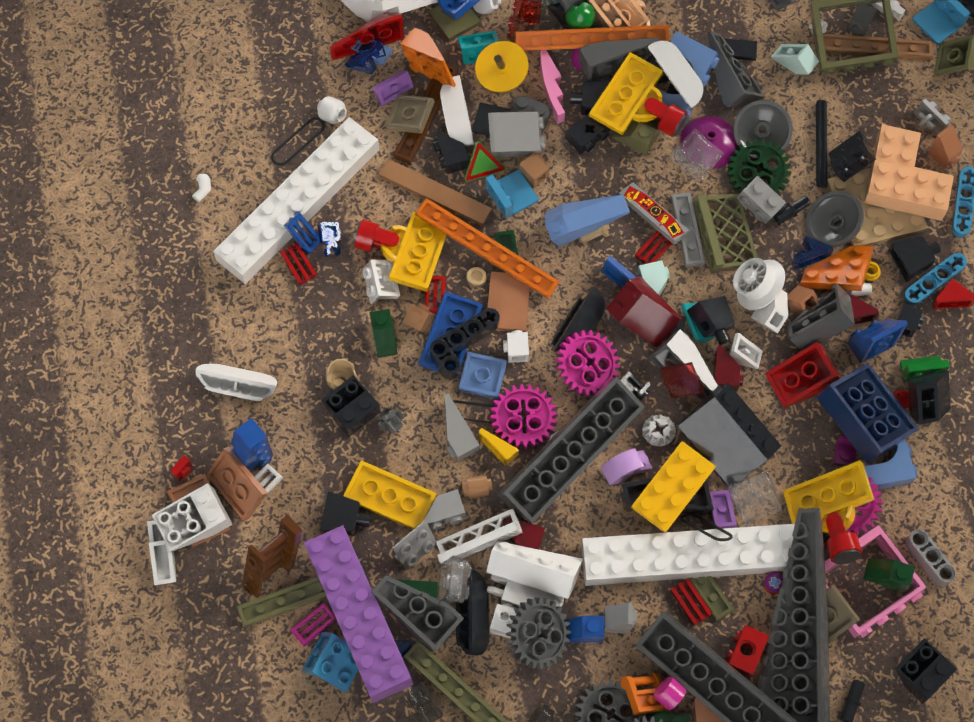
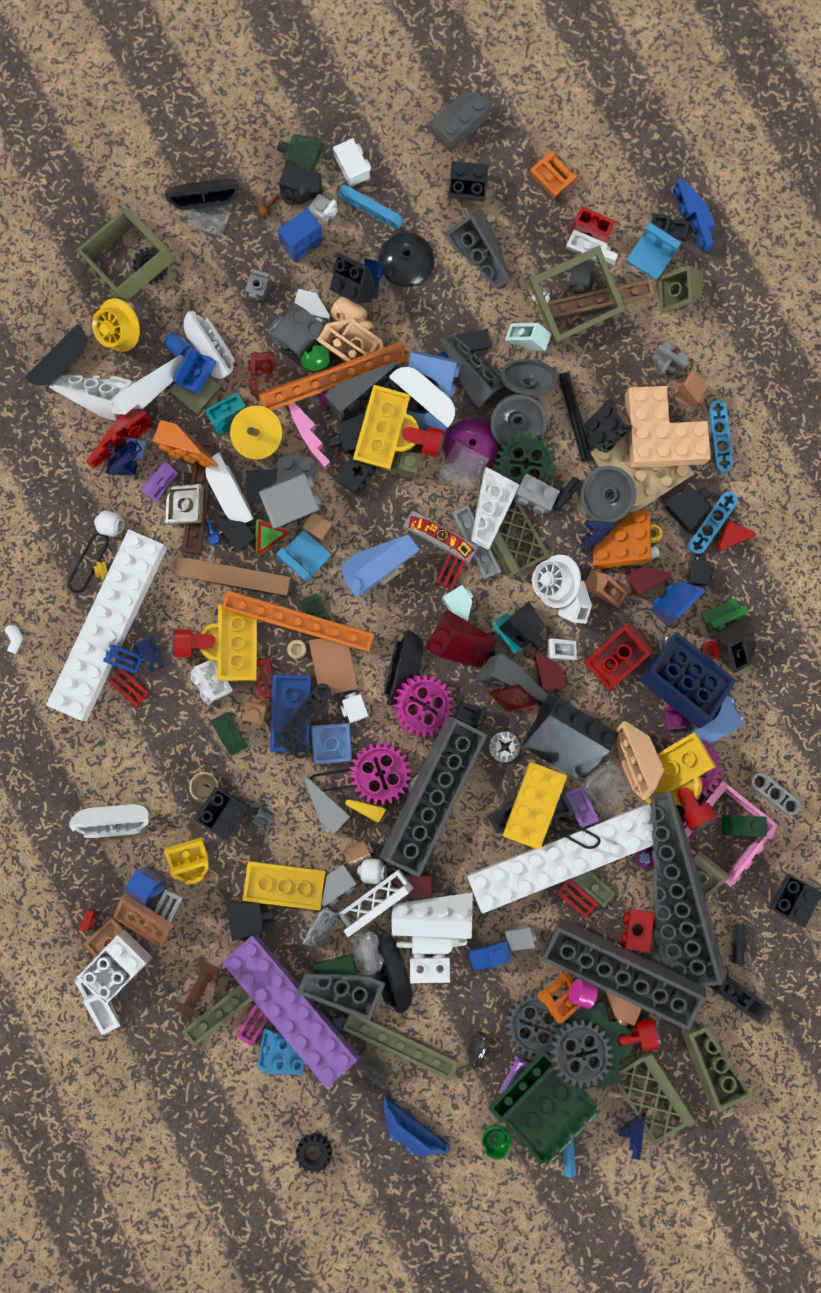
camera: 20 degrees left, 15 degrees up
(301, 442) = (188, 861): none -> yellow slope
(308, 148) = (100, 570): none -> yellow plate
(428, 153) = (214, 538): none -> blue hand
(485, 507) = (372, 871): none -> white head
(546, 649) = (454, 977): dark grey gear -> none
(616, 272) = (426, 608): blue tile -> none
(626, 465) = (486, 793): lavender brick -> none
(715, 194) = (493, 503): none -> white wing
(785, 92) = (528, 377): none -> dark grey dish
(794, 473) = (638, 759): none -> light nougat wedge
(824, 320) = (625, 602): dark grey wedge -> none

